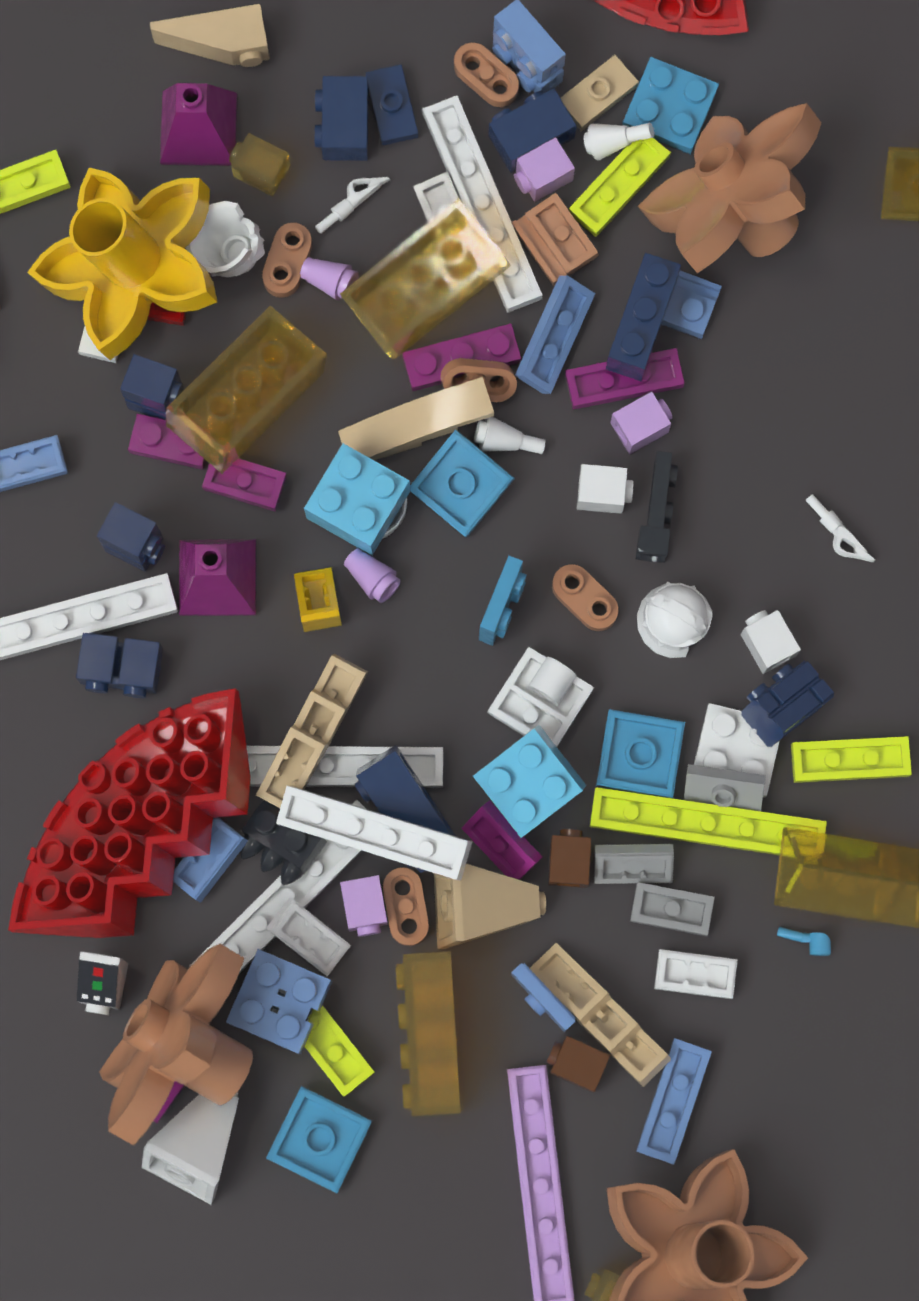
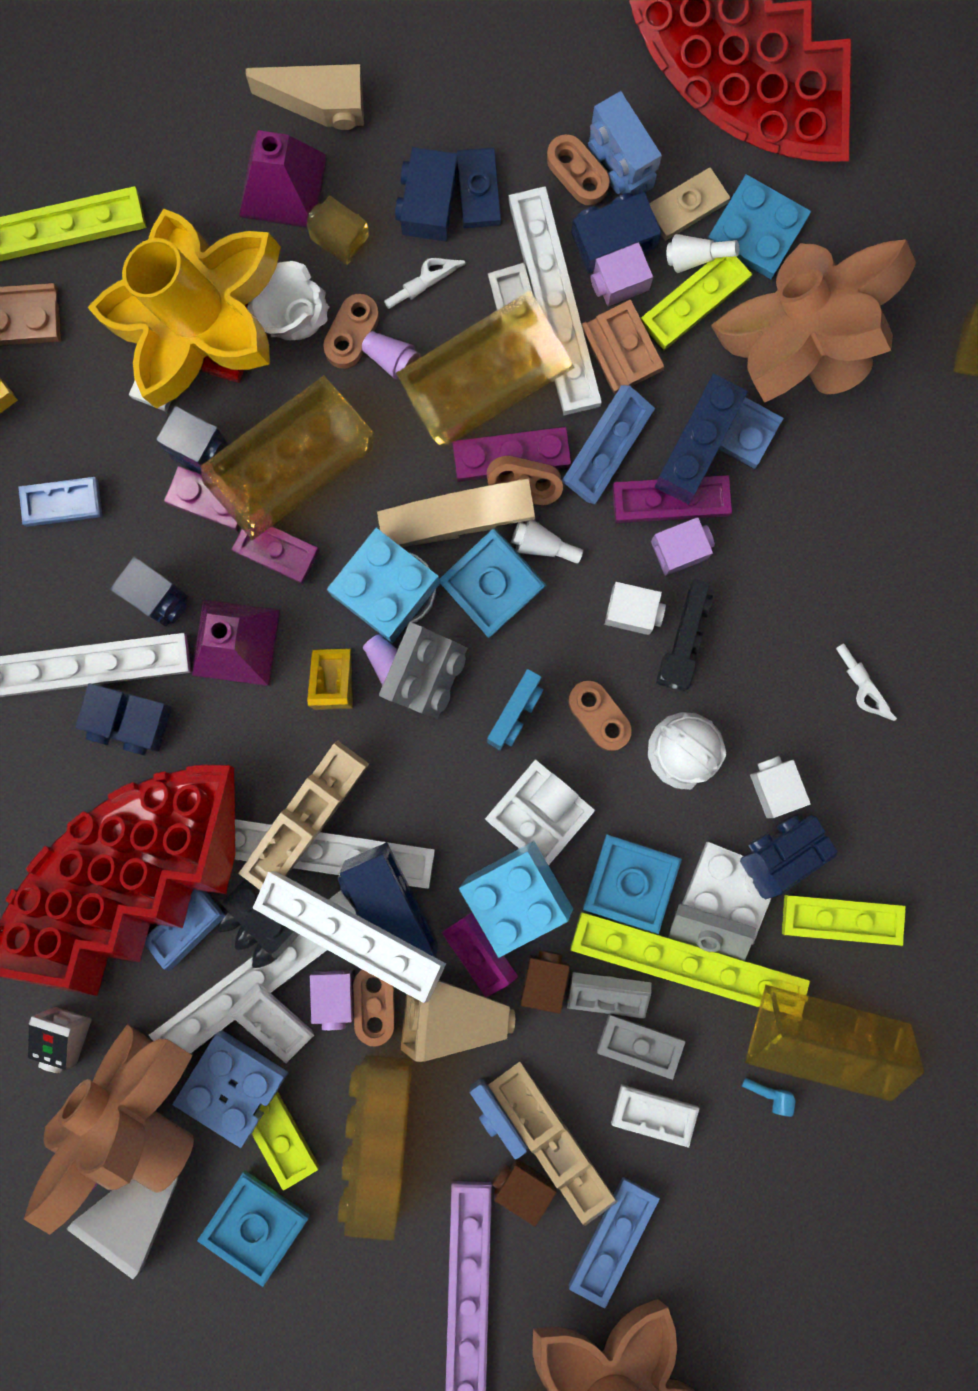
camera: 10 degrees right, 5 degrees up
(408, 575) = (423, 671): none -> light grey plate

